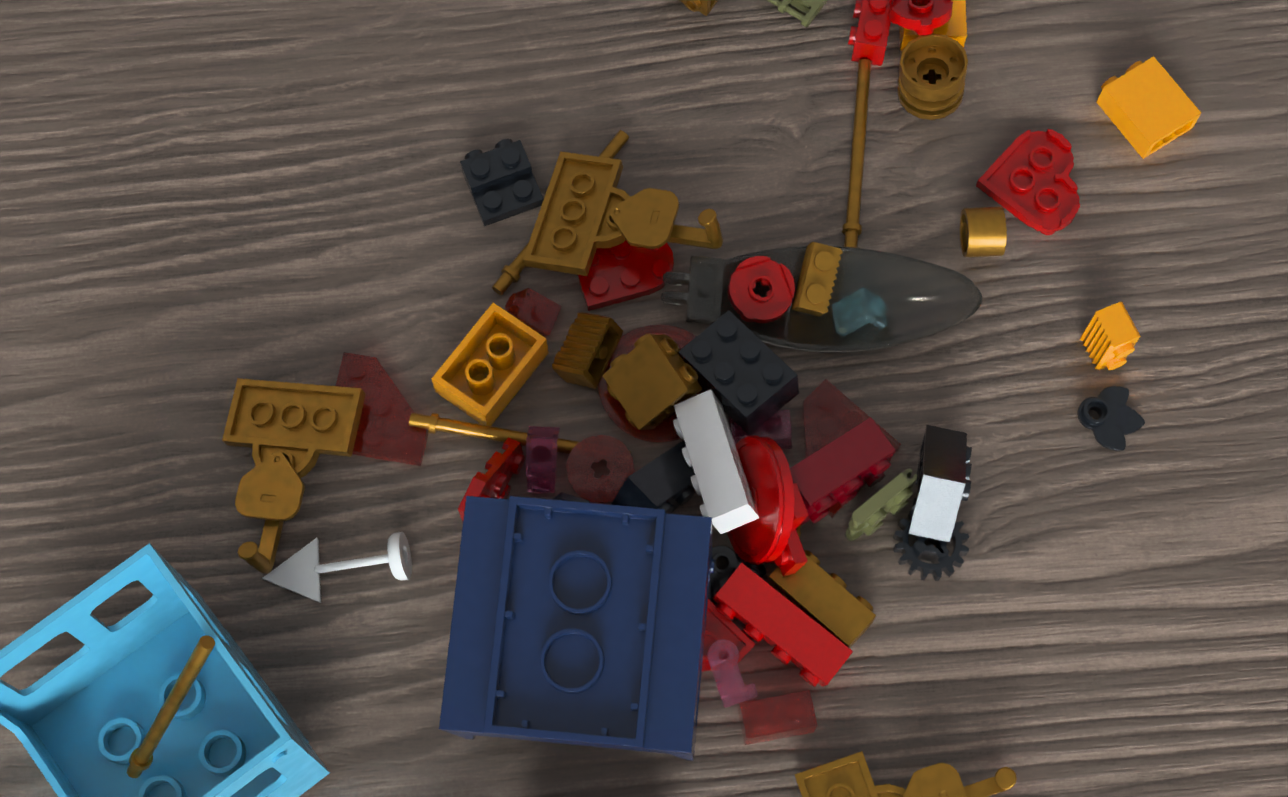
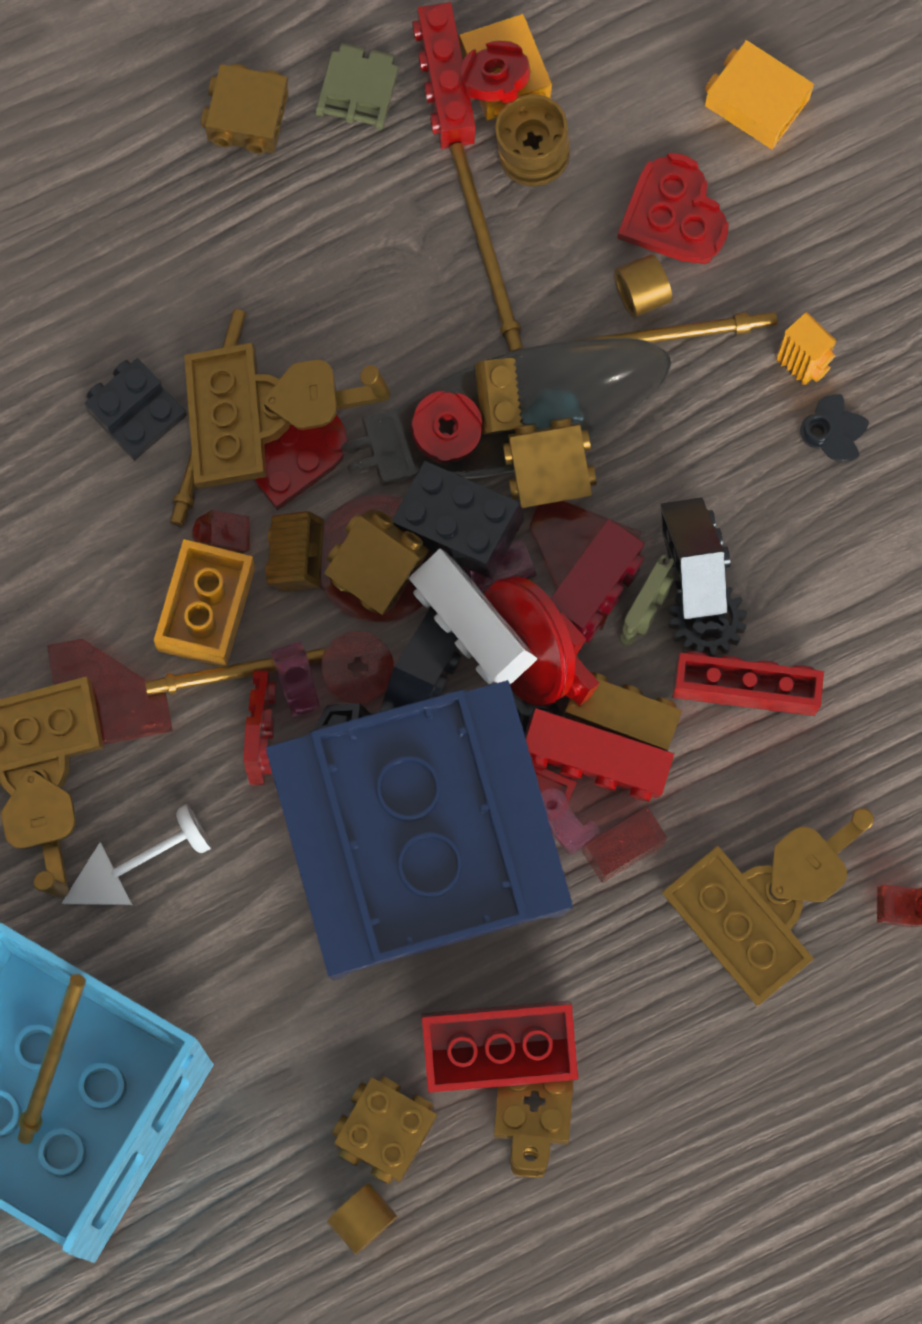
camera: 25 degrees left, 5 degrees up
(839, 352) = (549, 463): none -> pearl gold brick
(946, 614) = (747, 683): none -> red brick
(1058, 295) = (740, 323): none -> pearl gold bar

